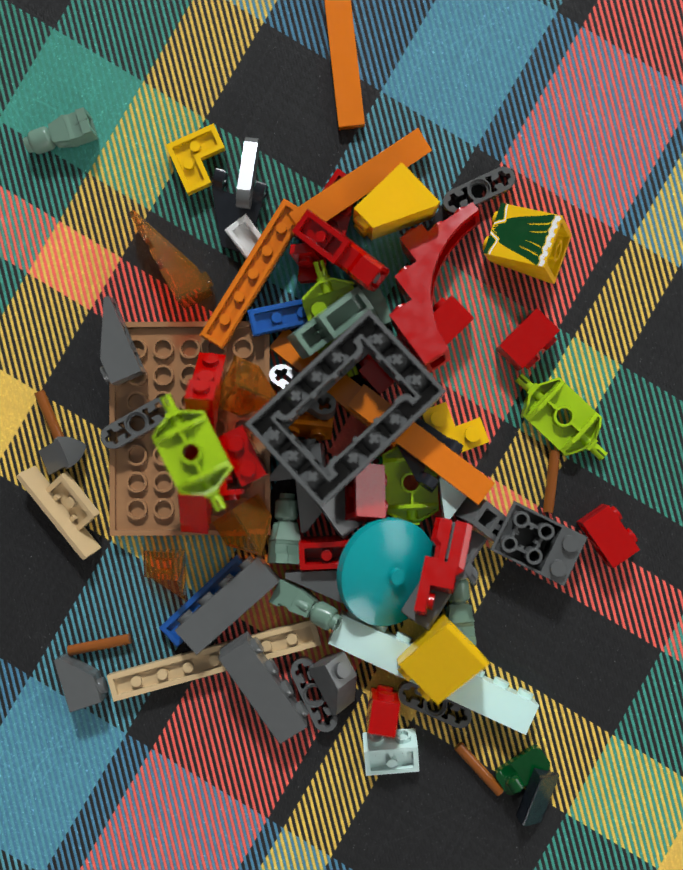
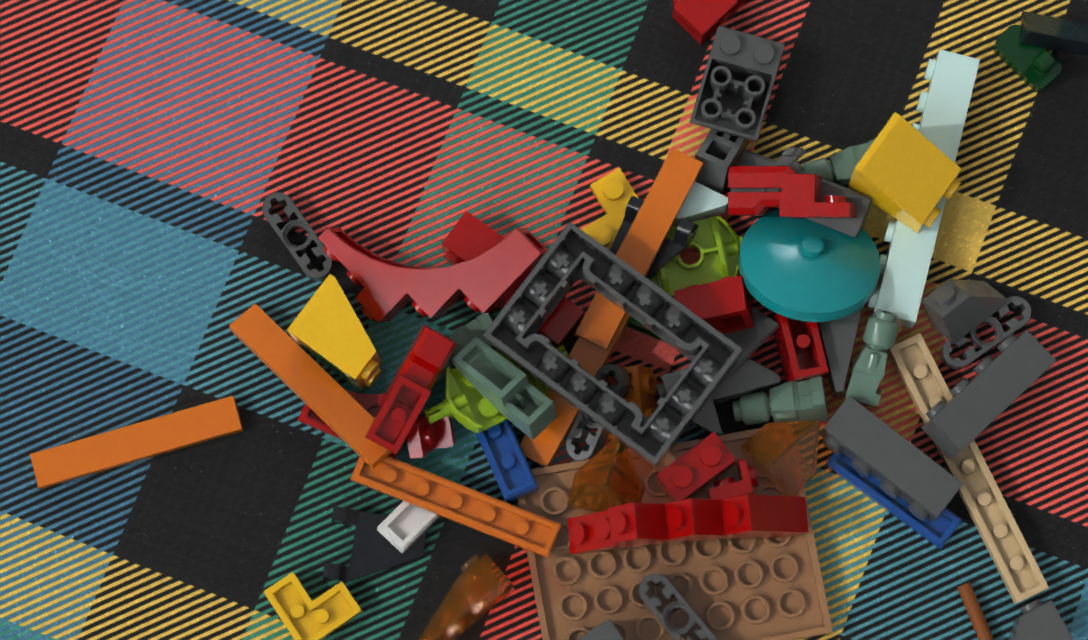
camera: 90 degrees left, 10 degrees down
(167, 569) = (863, 551): clear orange slope -> none
(210, 468) = (691, 543): lime plate -> none
(247, 172) = (323, 533): beam -> none
(383, 711) = (986, 239): red brick -> none
(391, 754) = (1039, 222): light aqua bracket -> none
(413, 702) = (981, 158): dark grey beam -> none
(479, 768) = (1037, 111): dark orange piece -> none
(528, 241) = (355, 163): slope -> none
(528, 339) = (481, 141): red brick -> none
(541, 408) = (565, 110): lime plate -> none
(551, 481) = (655, 83): dark orange piece -> none

